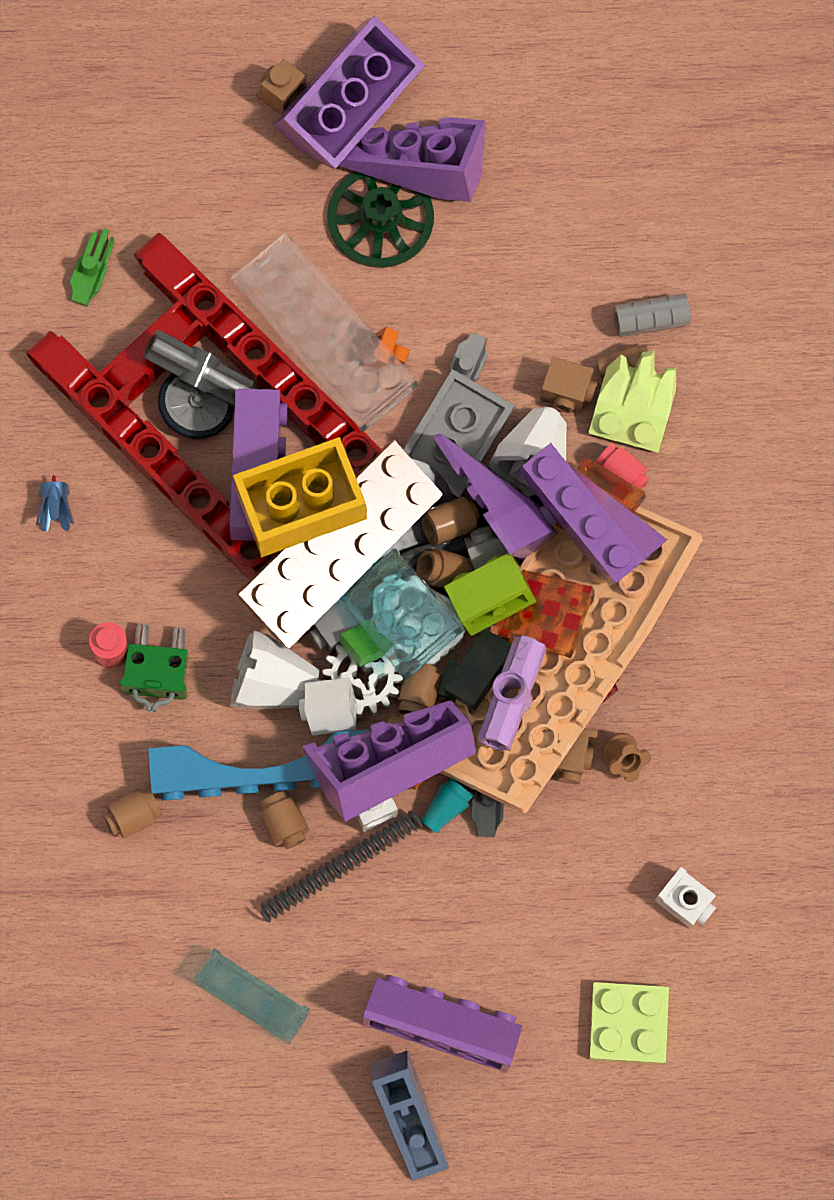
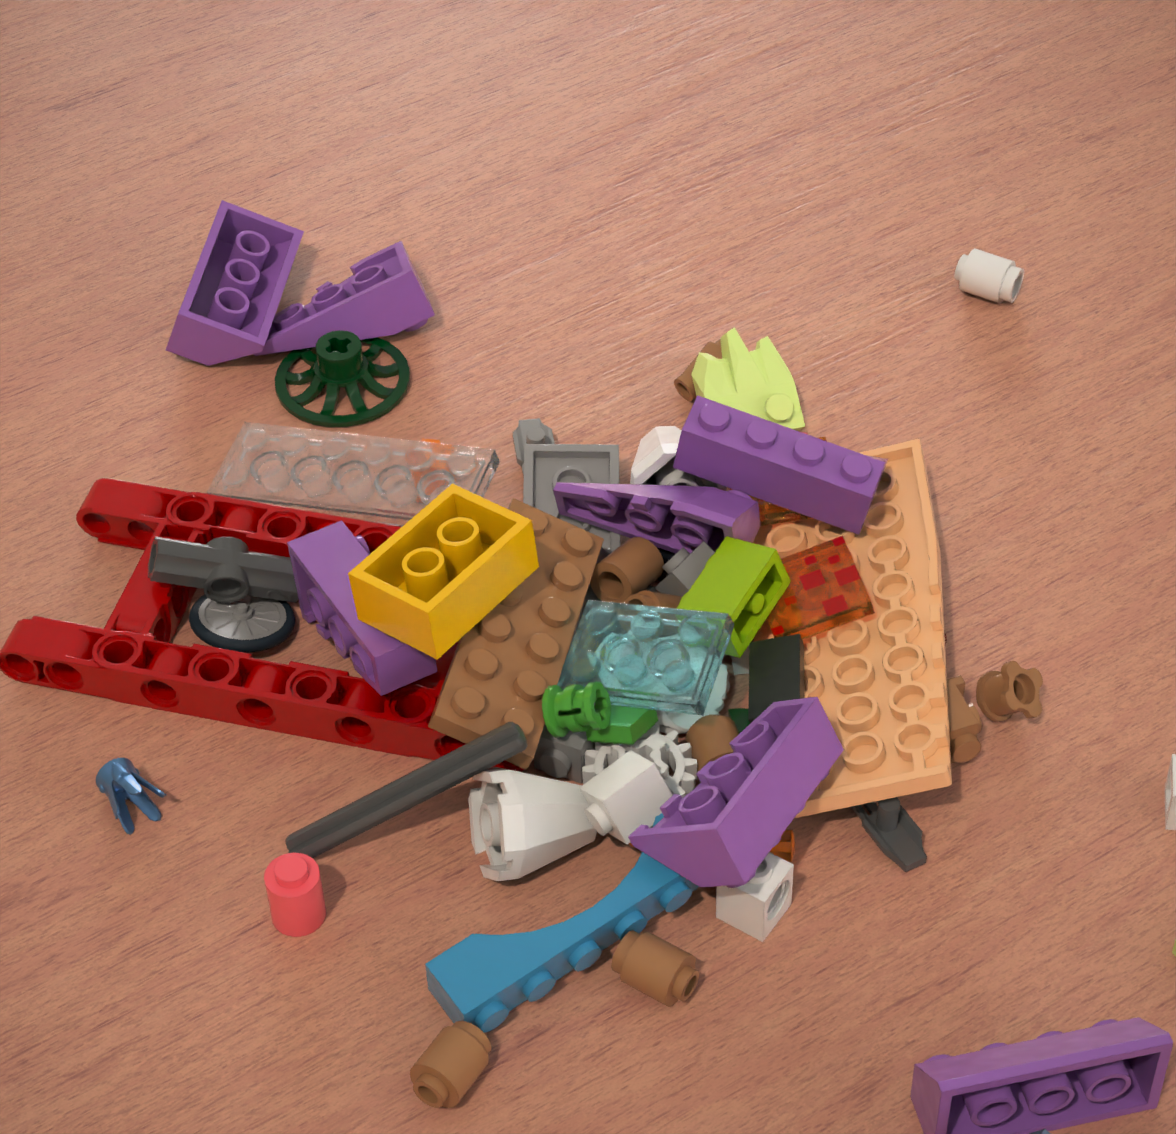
camera: 25 degrees left, 30 degrees down
(90, 271) = (31, 566): bright green piece -> none
(155, 675) = (374, 895): green piece -> none
(205, 622) = (408, 791): none -> dark grey axle
(281, 86) = (154, 313): medium nougat brick -> none
(336, 626) = (573, 719): none -> bright green bush
(340, 864) = (741, 1004): dark grey piece -> none
(446, 805) = (843, 848): teal cone -> none
(506, 713) = (838, 670): lavender piece -> none
(568, 385) = (657, 404): medium nougat brick -> none
(652, 315) = (701, 322): light grey axle -> none

